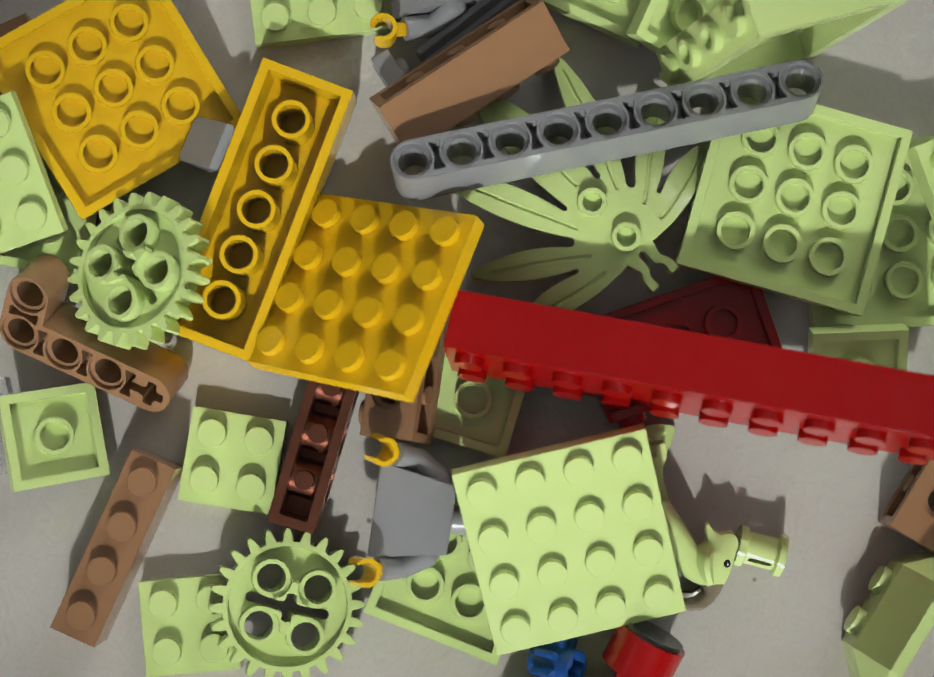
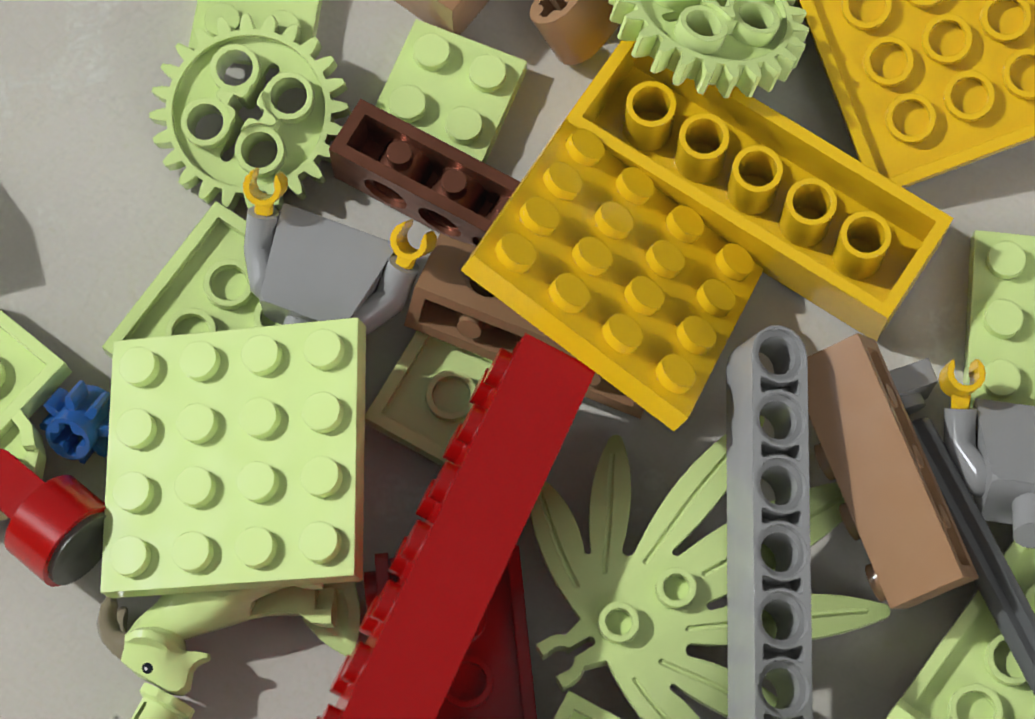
camera: 105 degrees right, 15 degrees down
(206, 144) = (854, 133): light grey slope -> none

